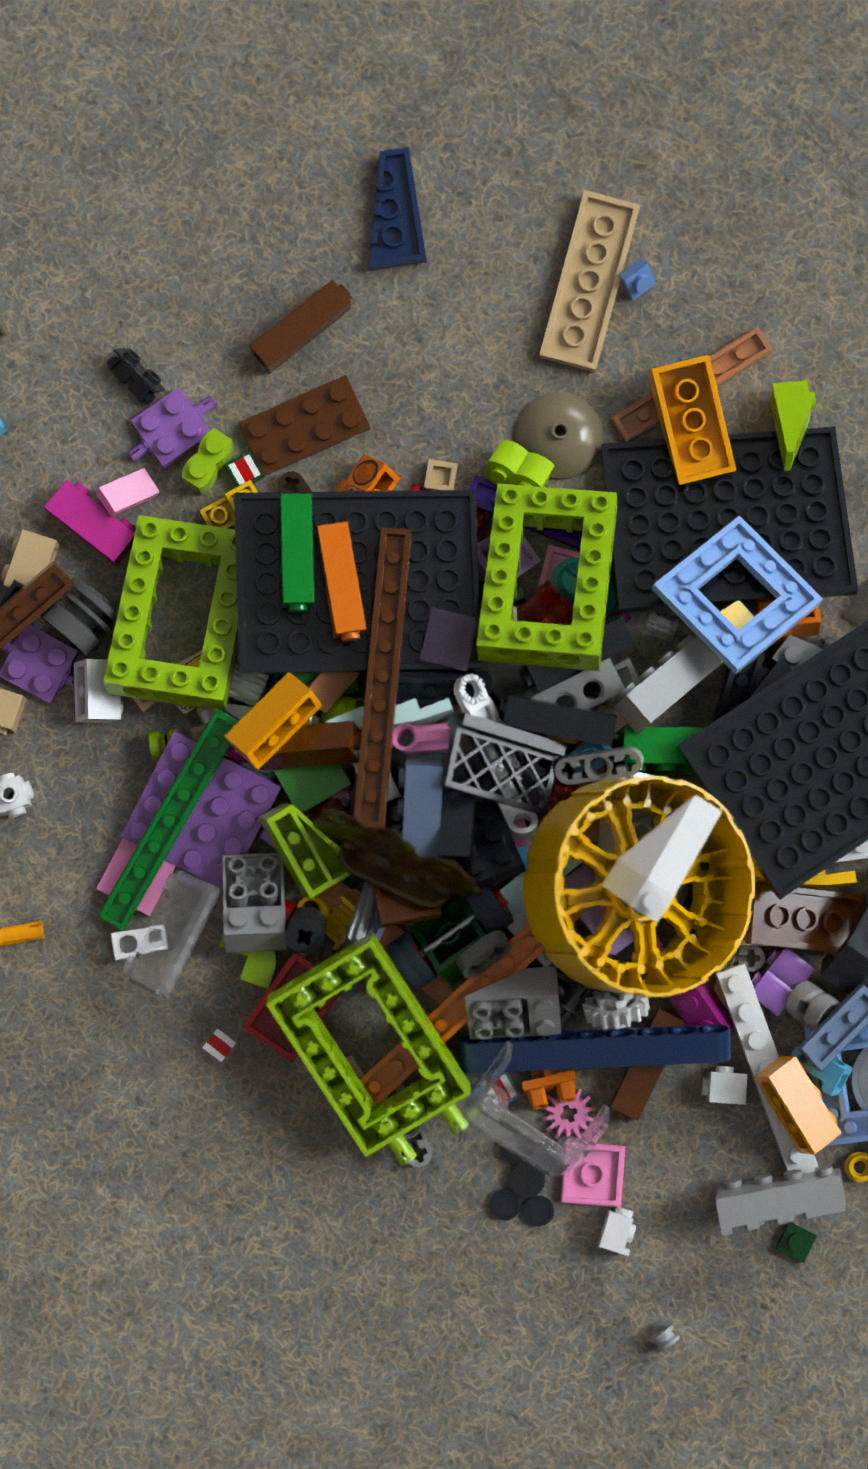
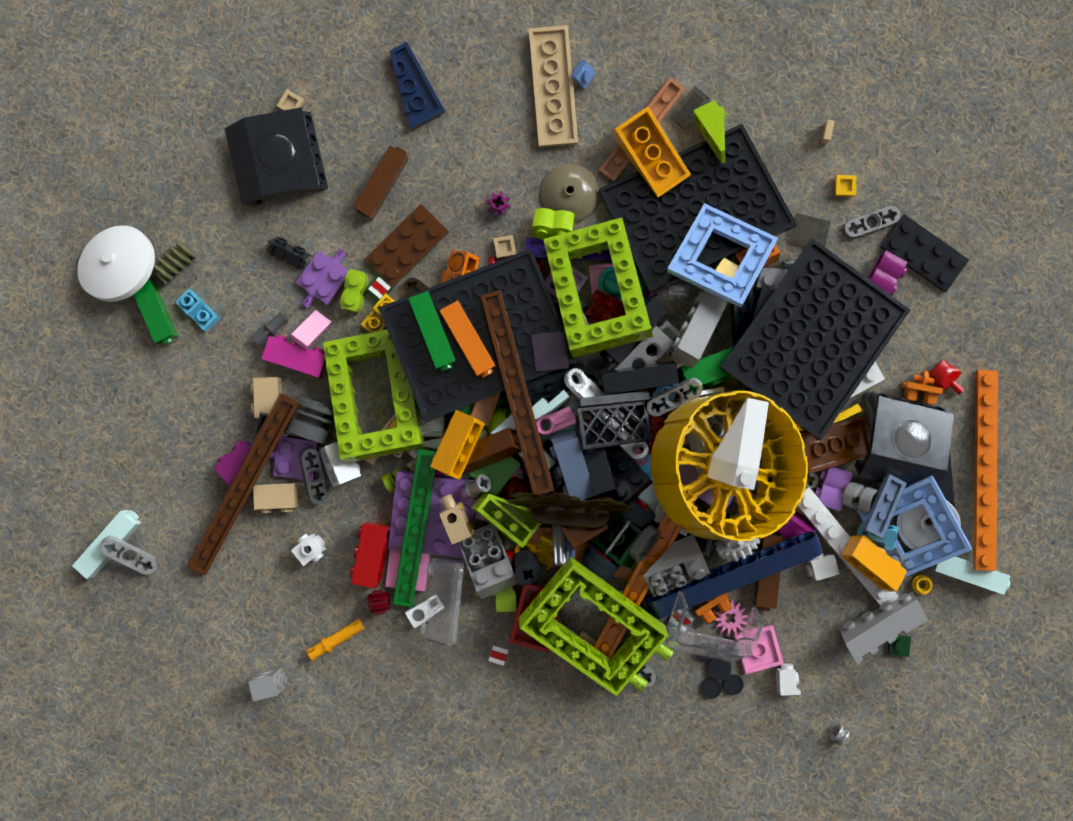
camera: 15 degrees left, 5 degrees up
(65, 675) = (315, 460): none -> dark grey beam
(69, 470) = (269, 329): none -> dark grey axle
(79, 907) = (379, 602): none -> dark red gear
(94, 832) = (370, 554): none -> red brick
(169, 236) = (275, 155): none -> black panel
(216, 173) = (290, 101): none -> tan plate
(235, 837) = (457, 527): none -> tan torso
(284, 789) = (475, 487): none -> light grey bush
(455, 422) = (501, 209): none -> magenta gear
(759, 382) = (684, 112): none -> clear smoke tile

